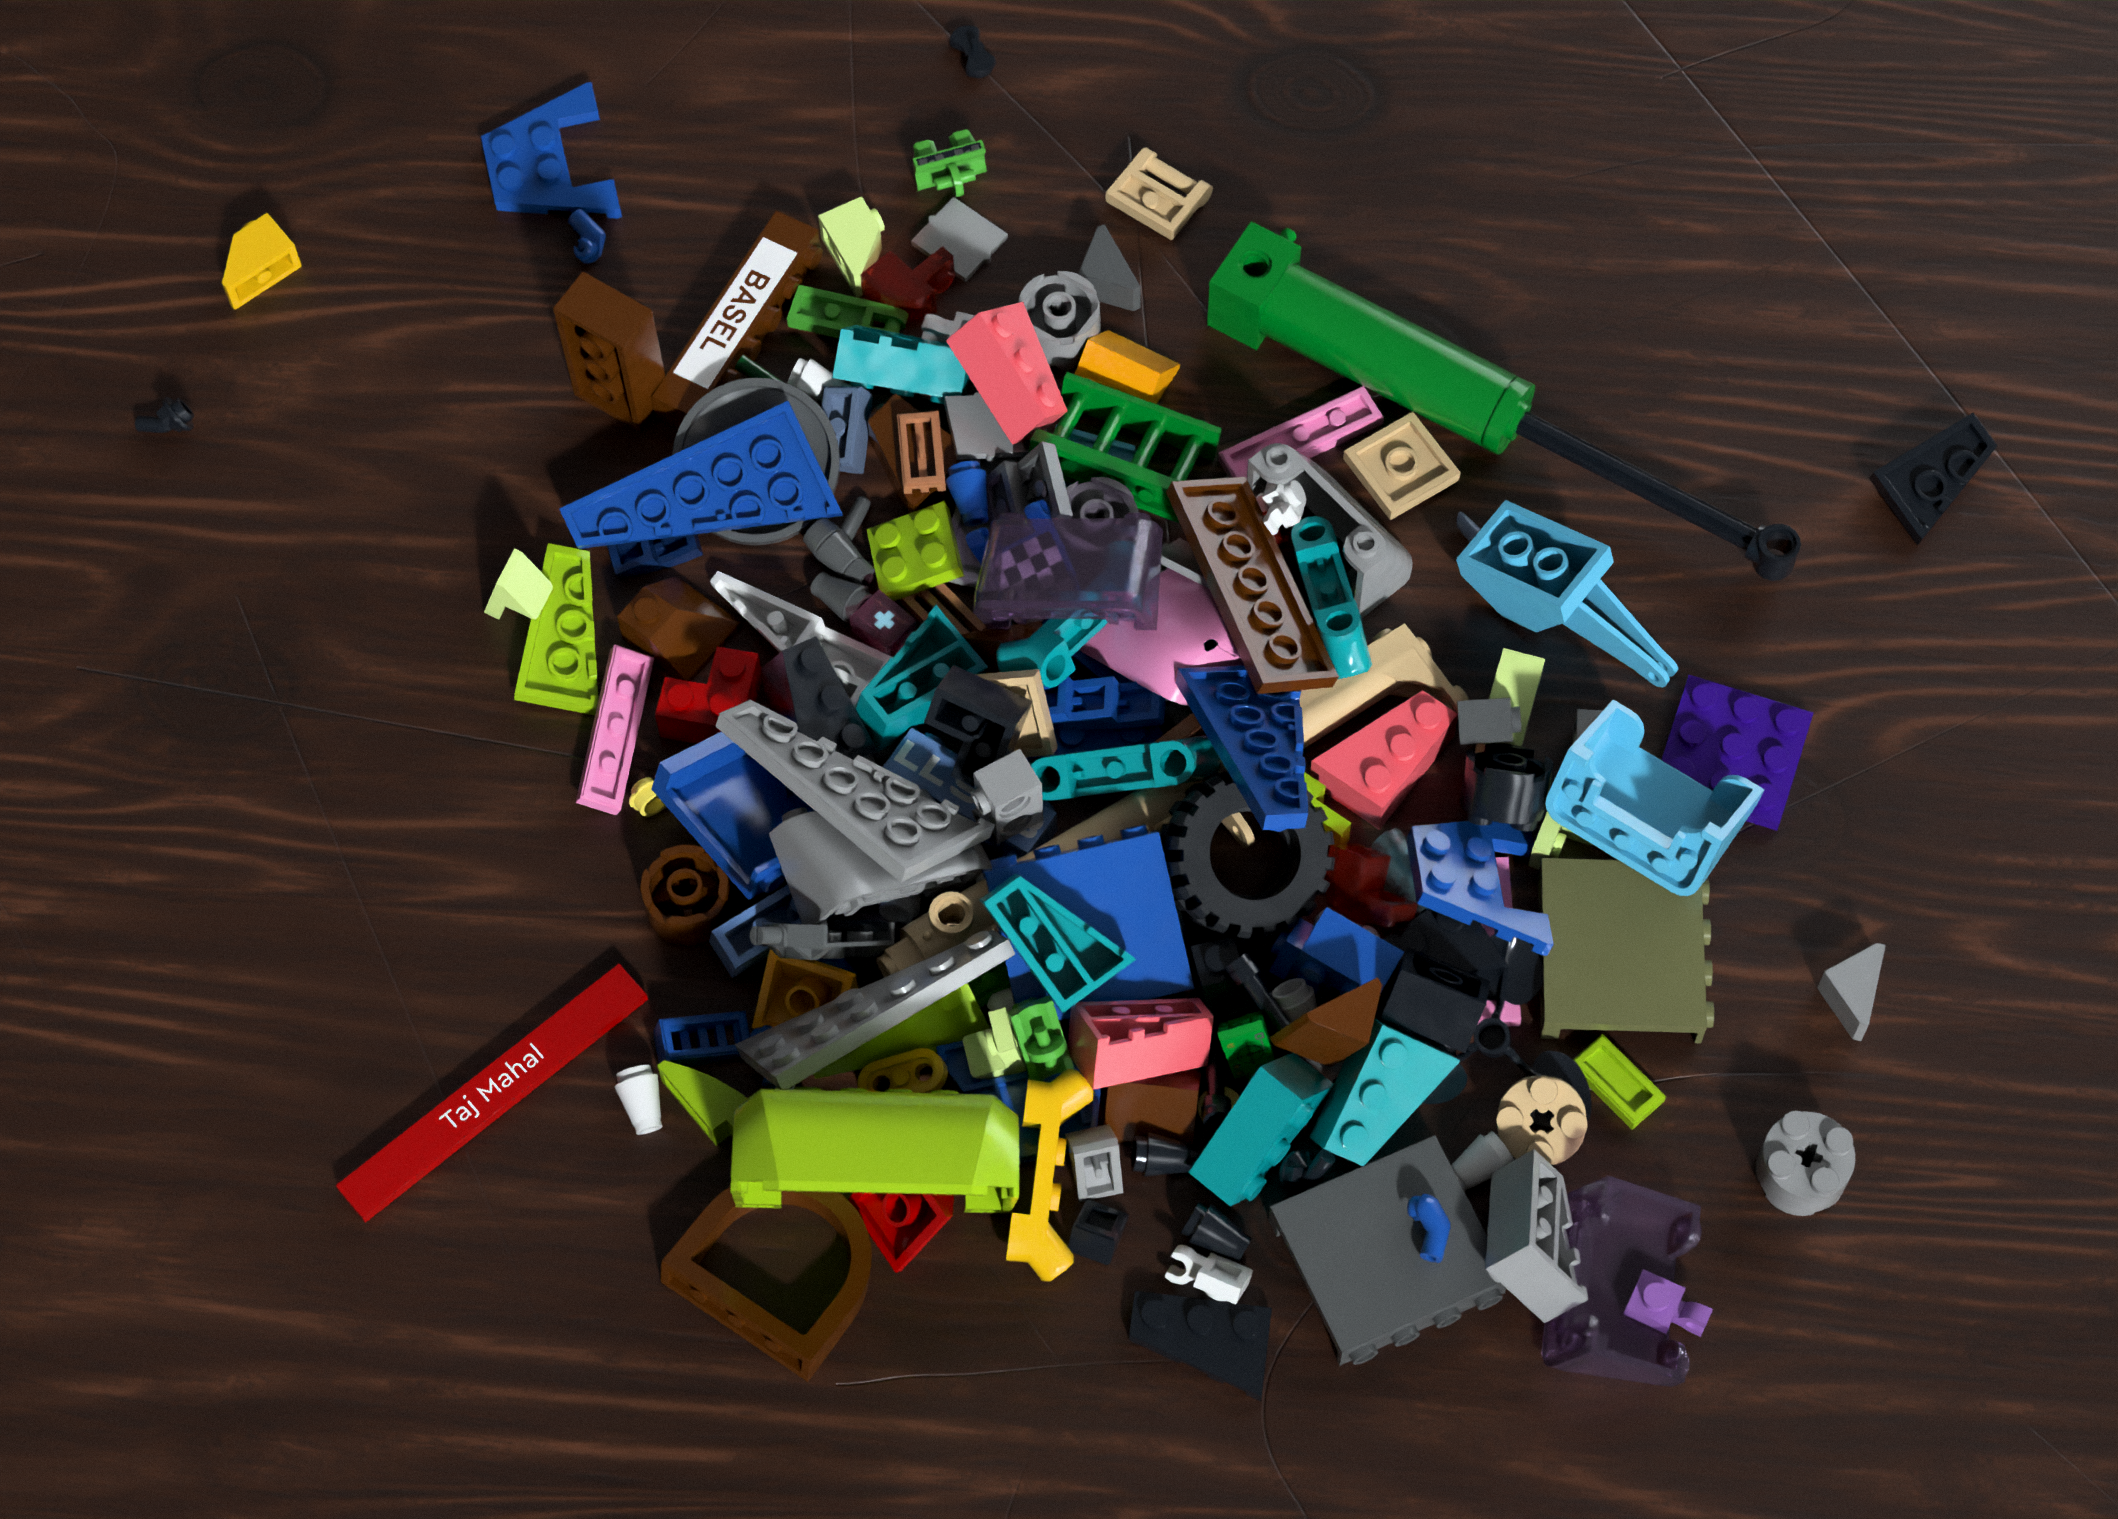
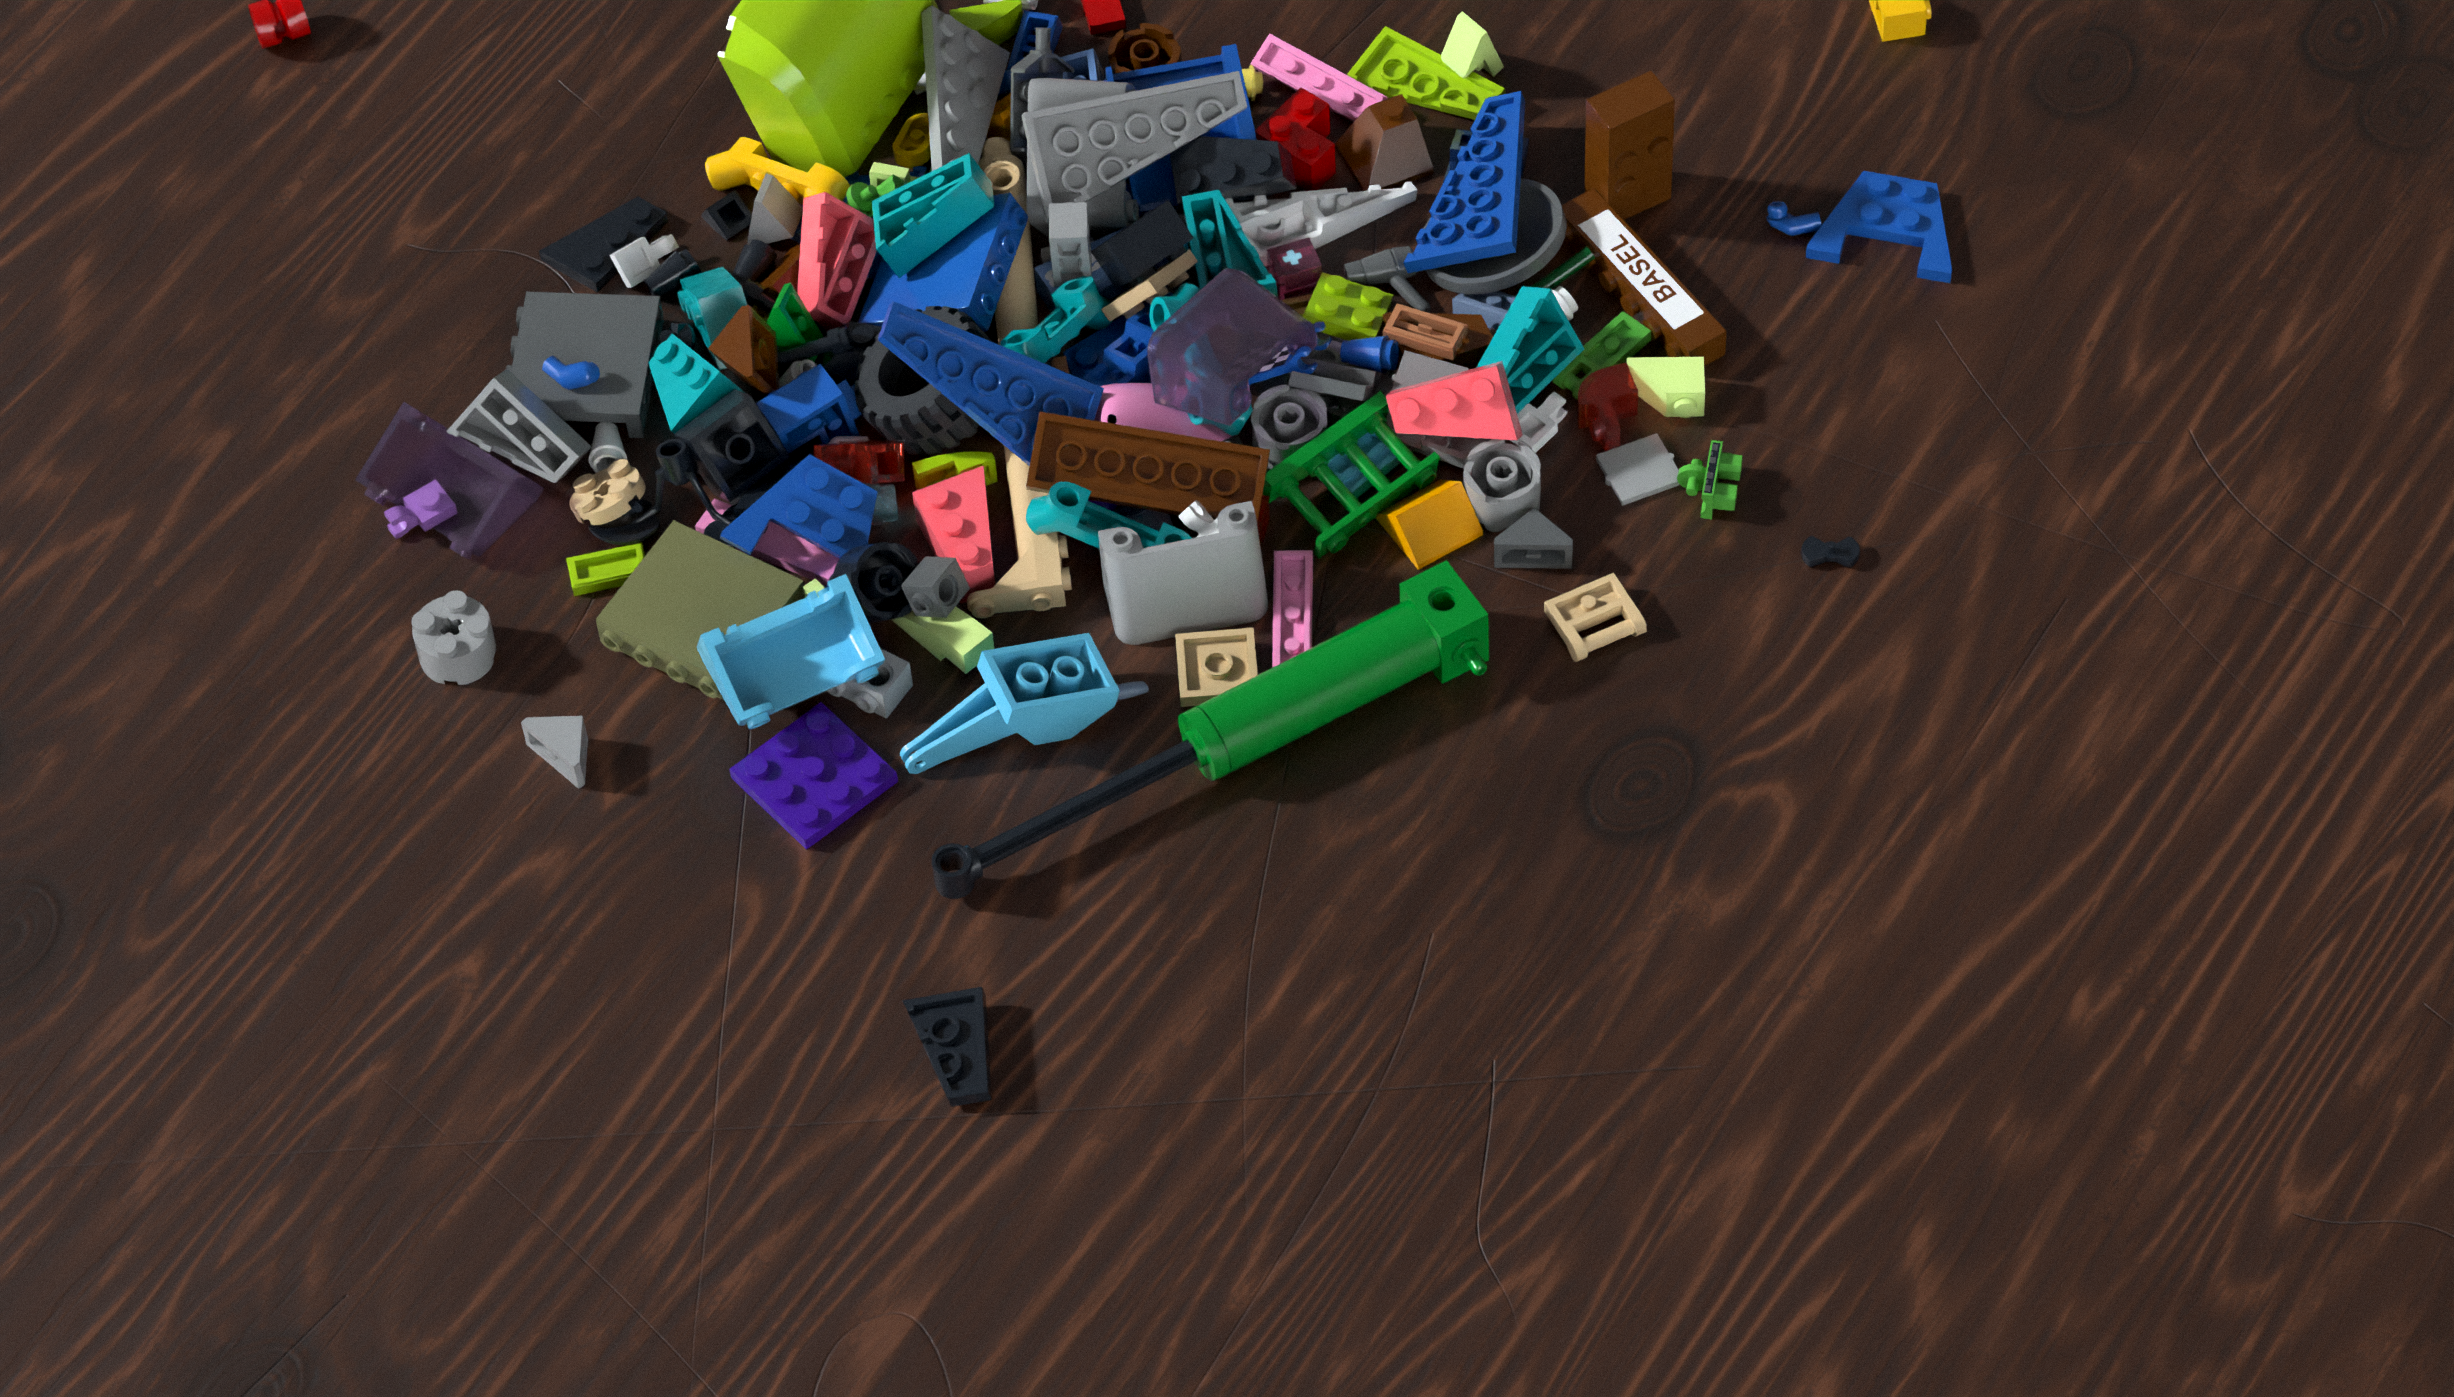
camera: 120 degrees right, 10 degrees down
(840, 595) = (1336, 254): dark grey cone -> none

